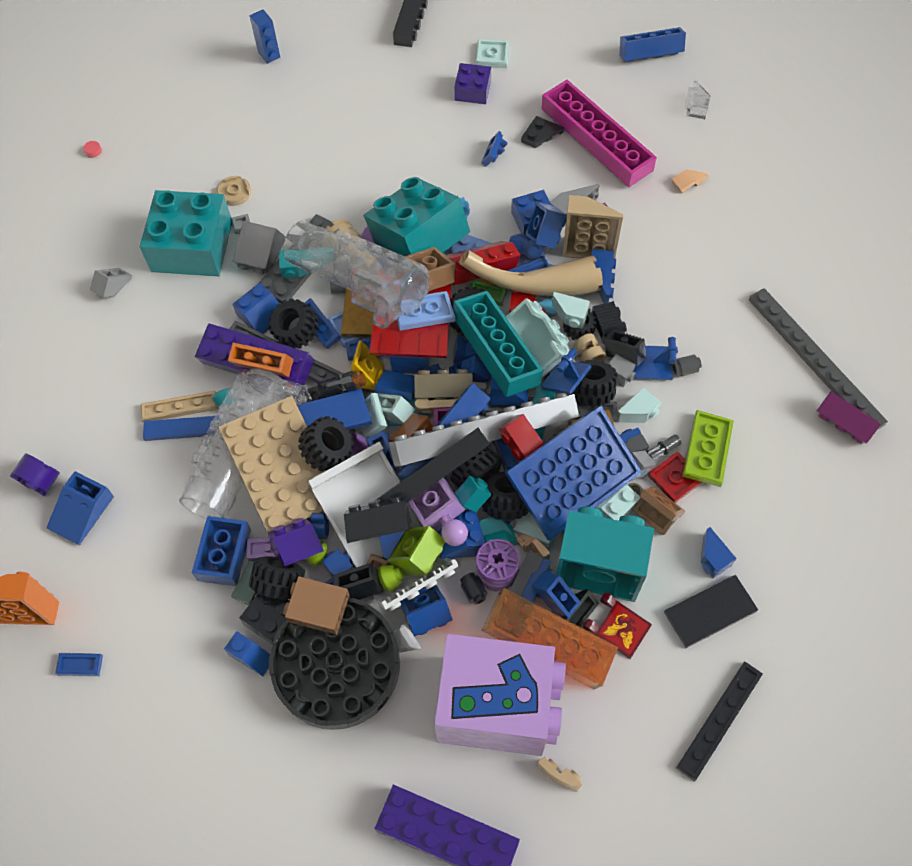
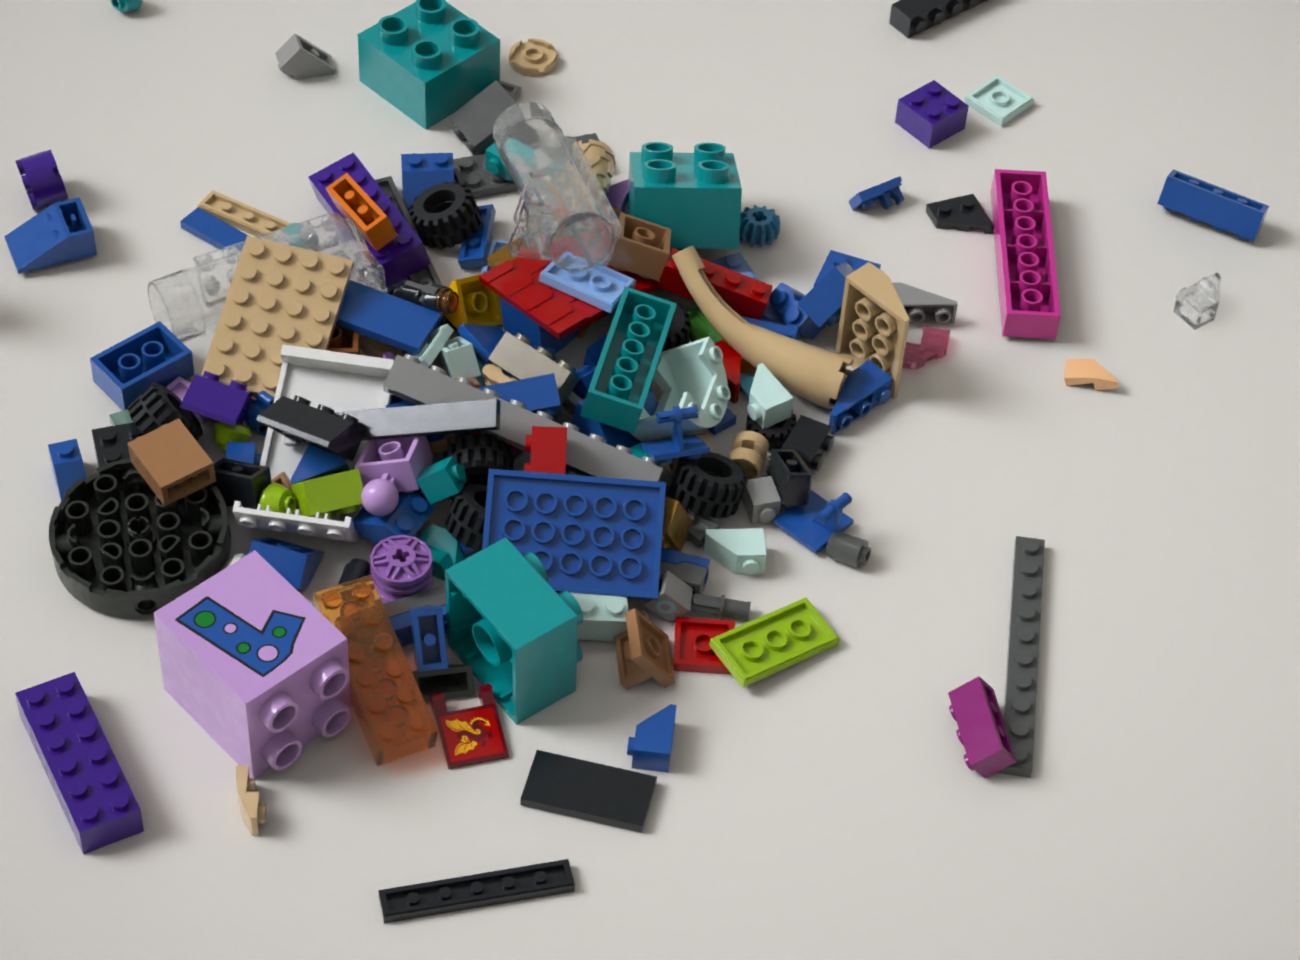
camera: 35 degrees right, 15 degrees down
(315, 450) = (351, 311): black tyre -> none

